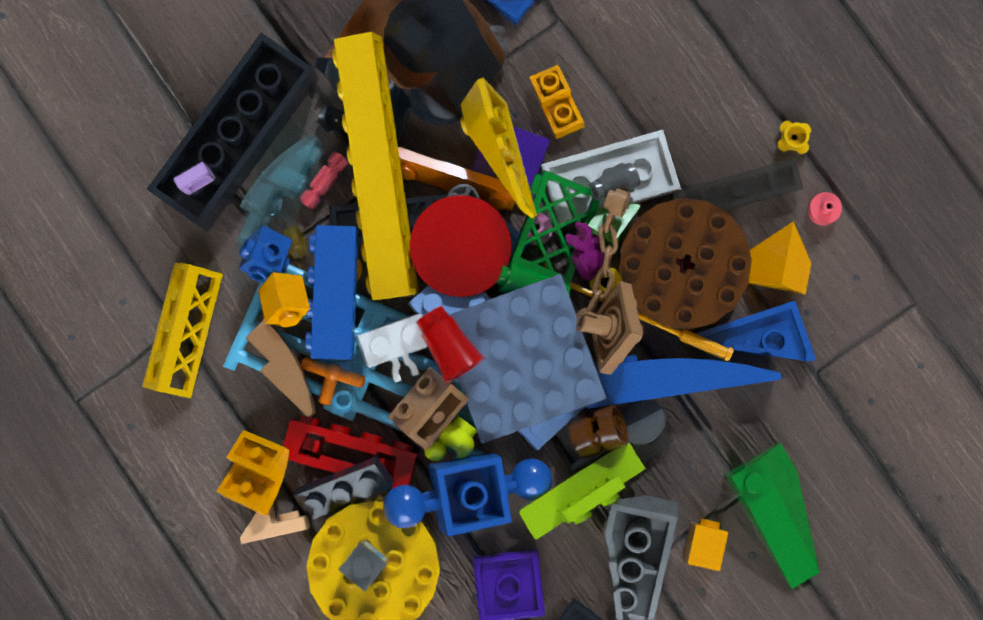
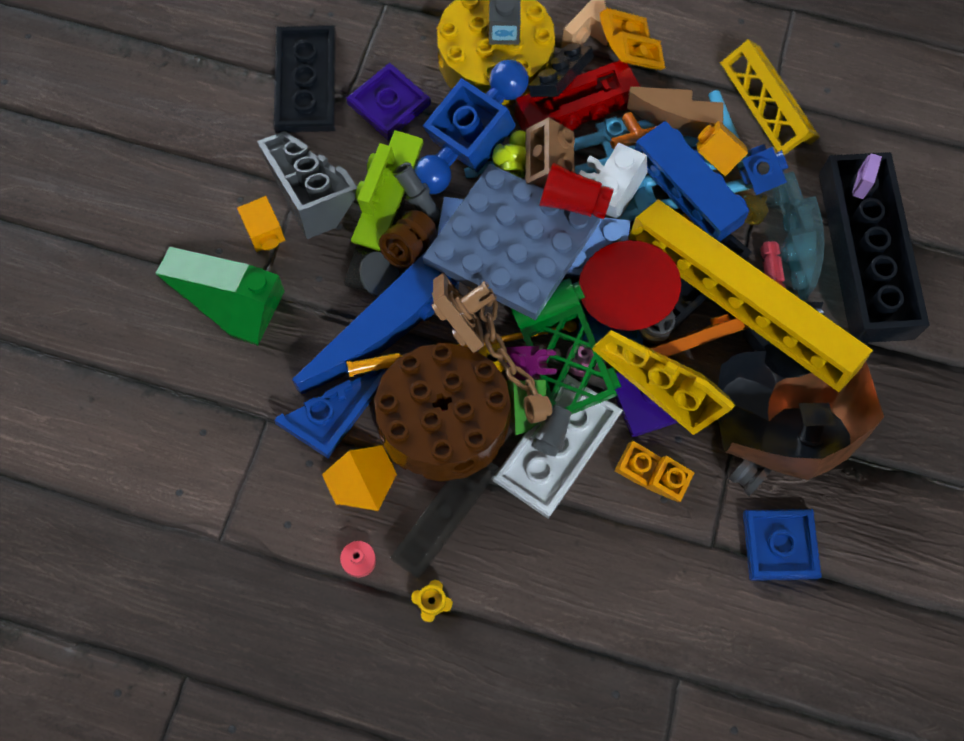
camera: 140 degrees right, 15 degrees down
(560, 467) = (416, 191): none -> dark grey pin

